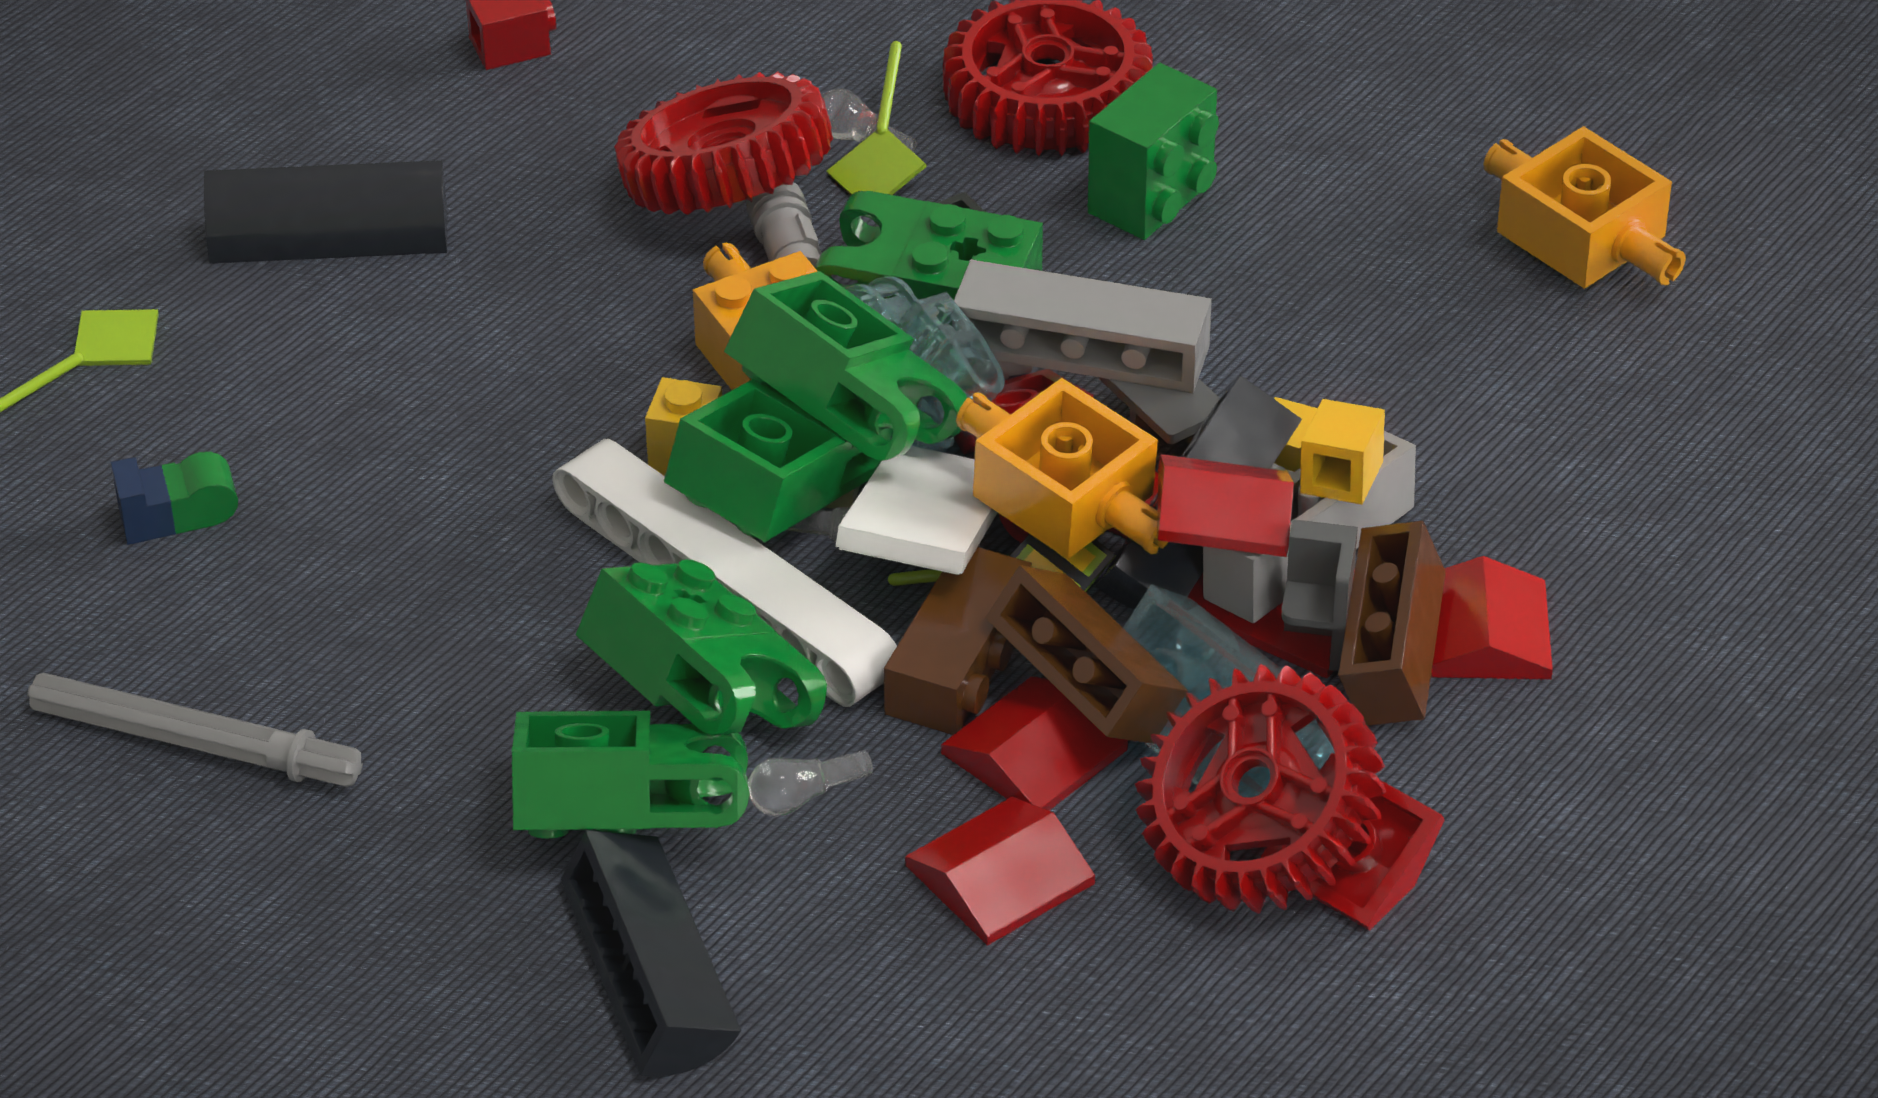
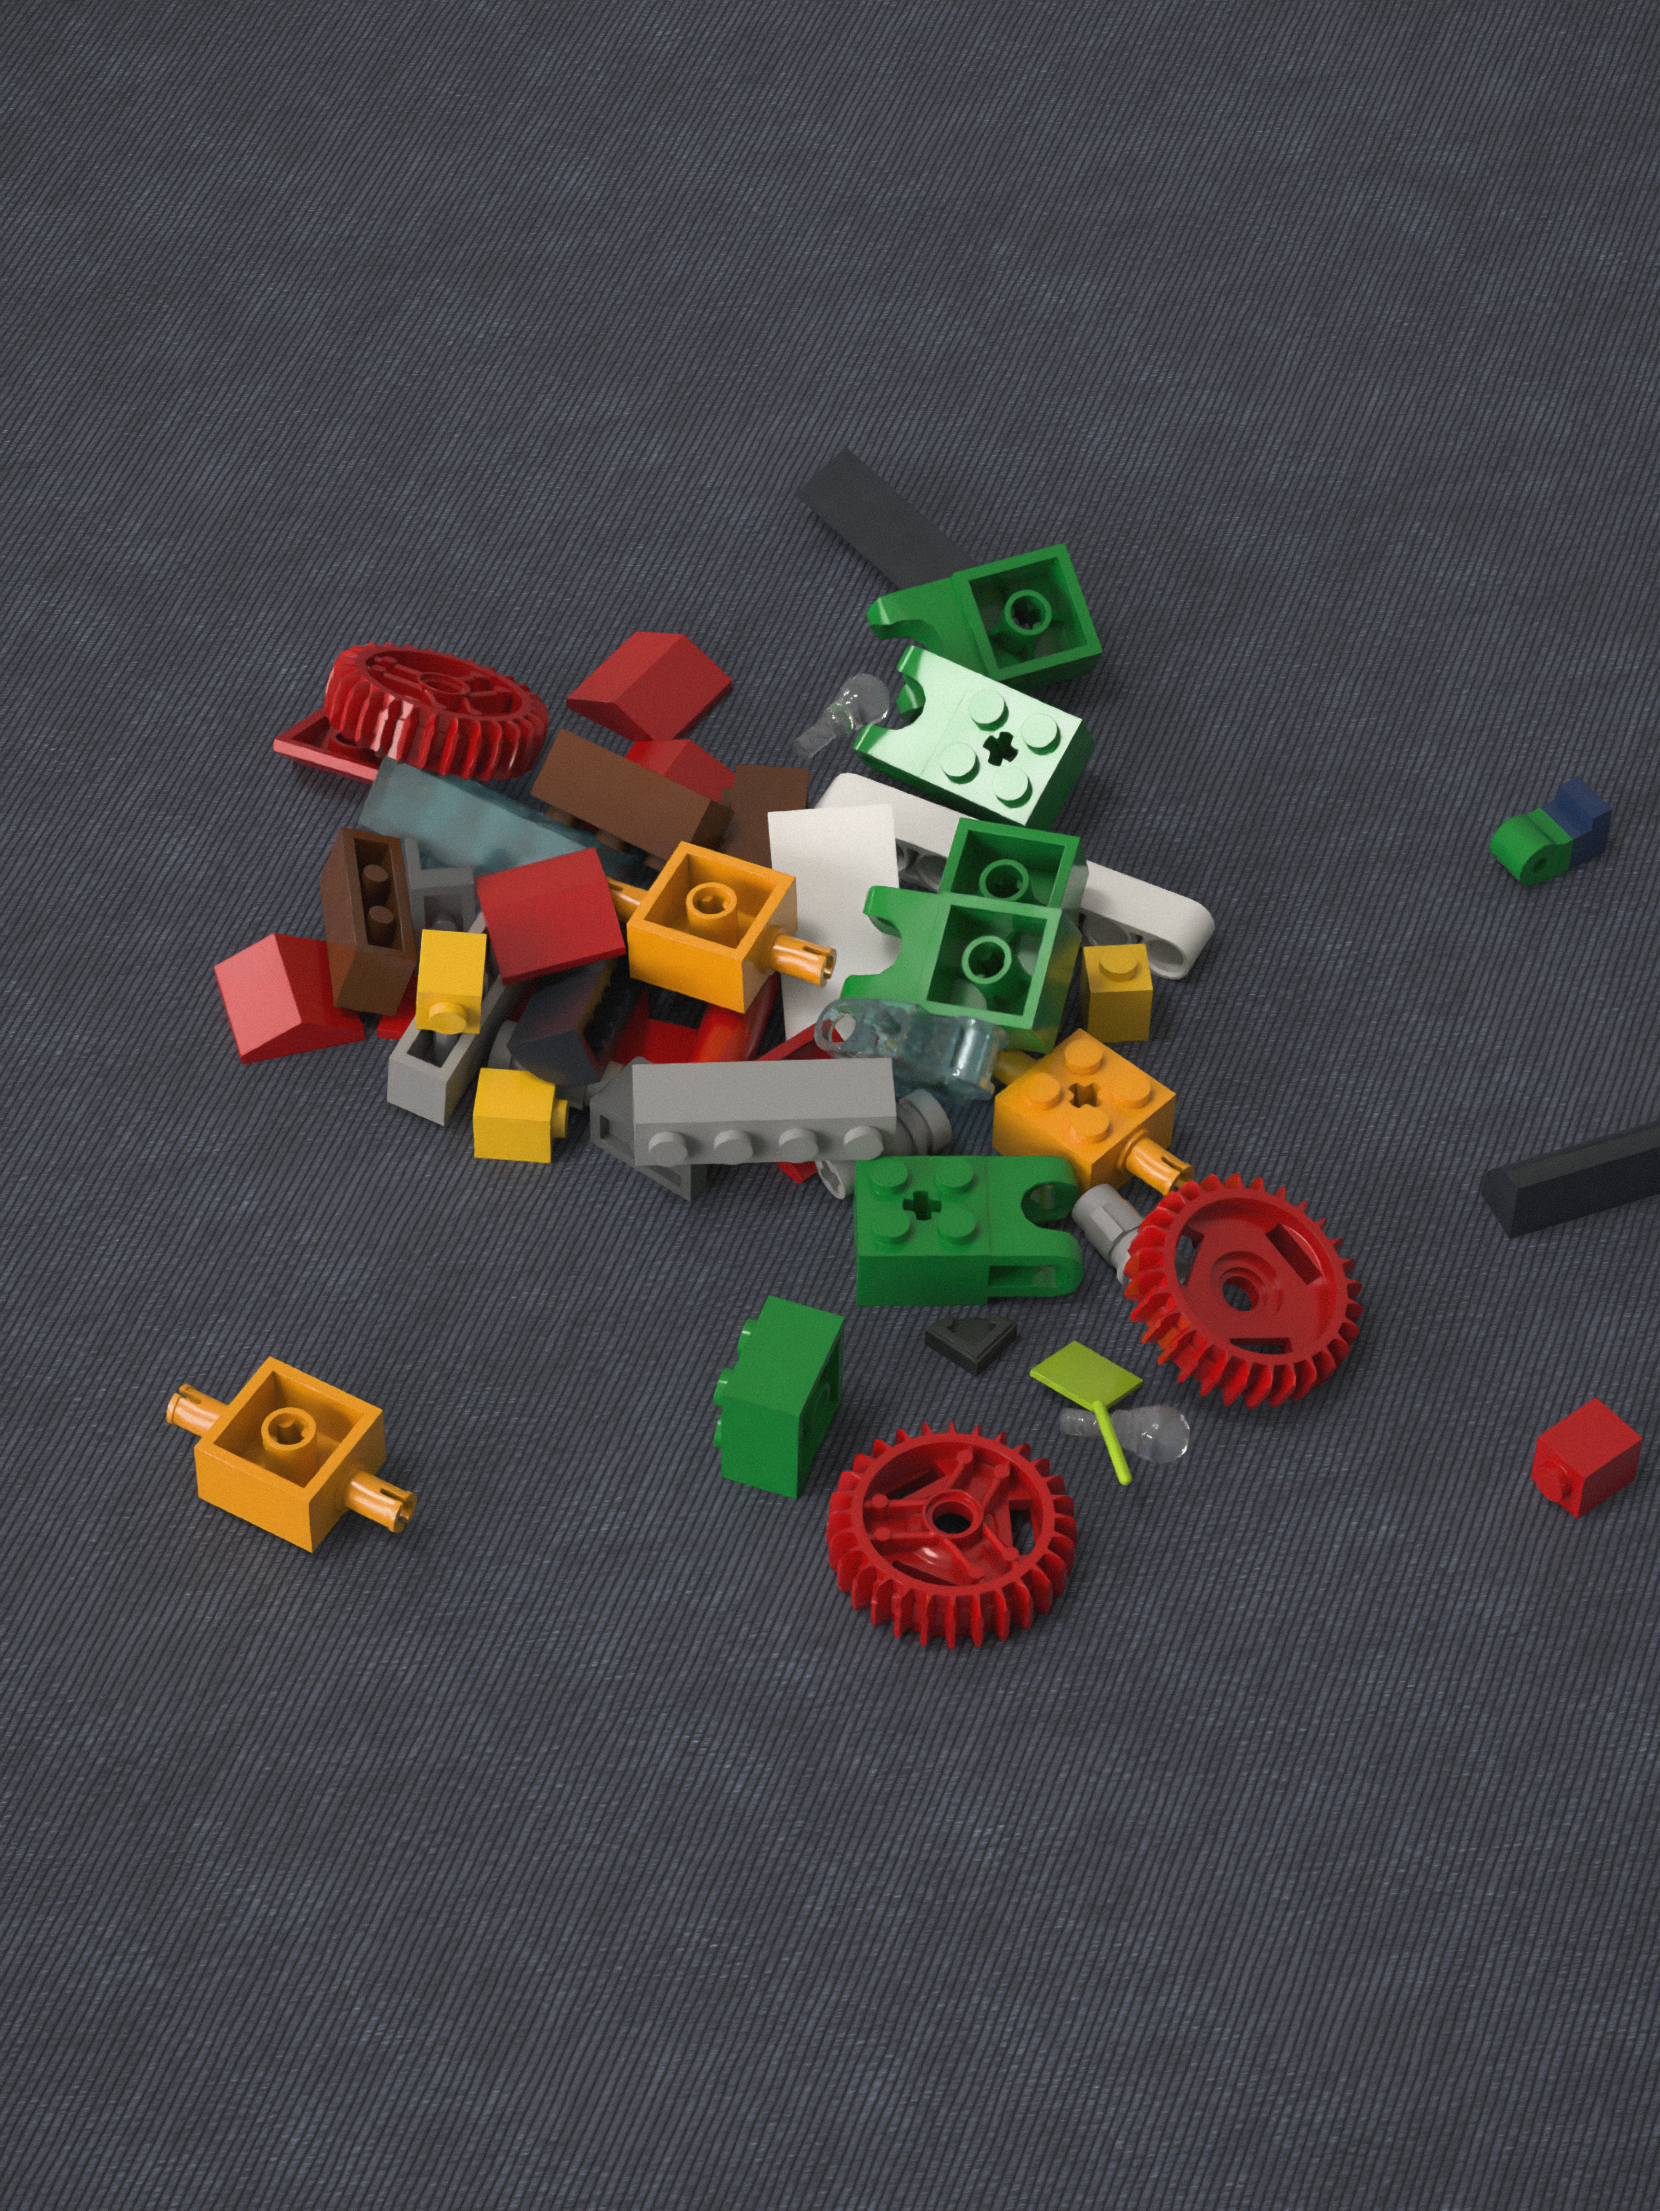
camera: 160 degrees right, 5 degrees up
(272, 748) = (1383, 644): light grey axle -> none

